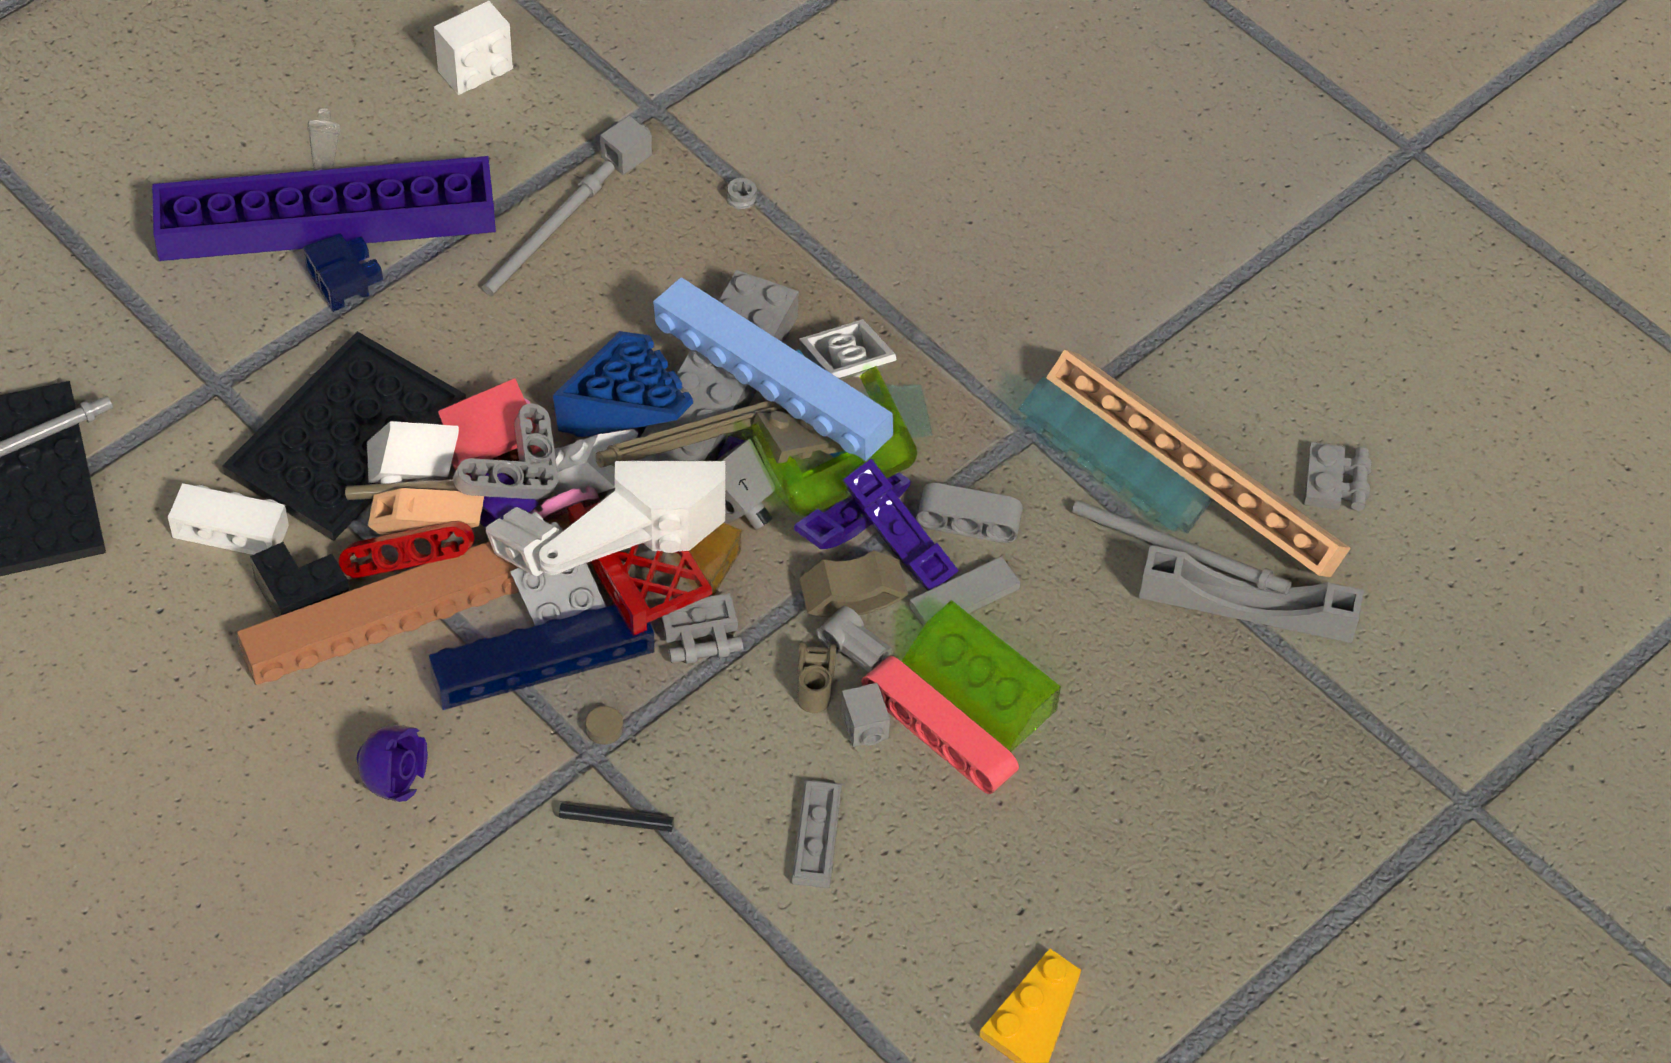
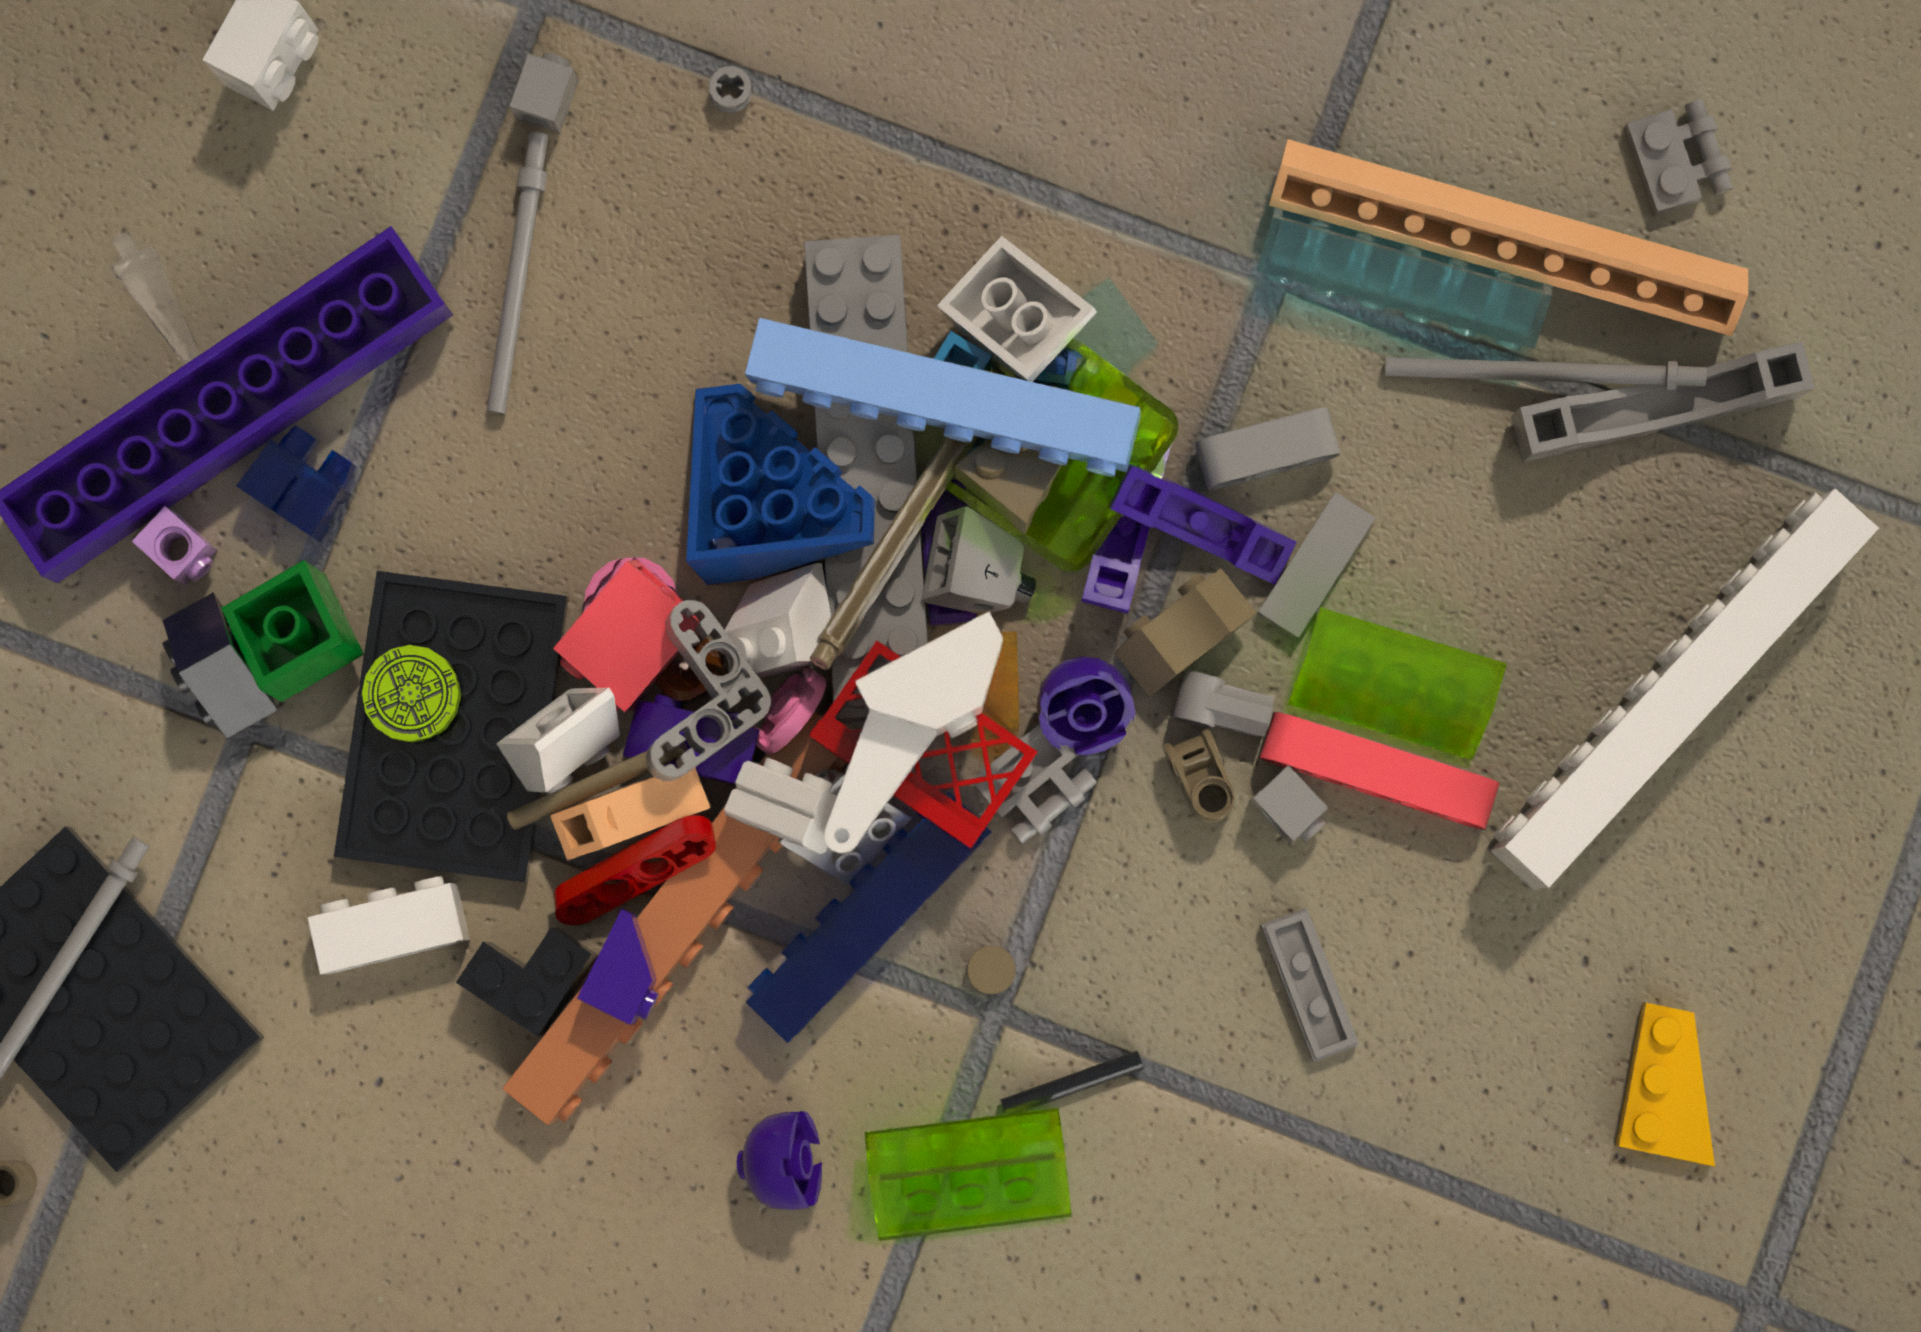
camera: 20 degrees left, 30 degrees up
(223, 335) = (214, 667): none -> brick
(244, 268) = (159, 535): none -> lavender brick
(283, 334) = (292, 631): none -> green brick
(332, 398) = (411, 693): none -> lime tile
(358, 592) = (622, 974): none -> dark purple slope
(510, 833) = (968, 1174): none -> clear neon green slope
(760, 590) = (1085, 705): none -> dark purple cylinder
(1173, 759) = (1683, 690): none -> white brick

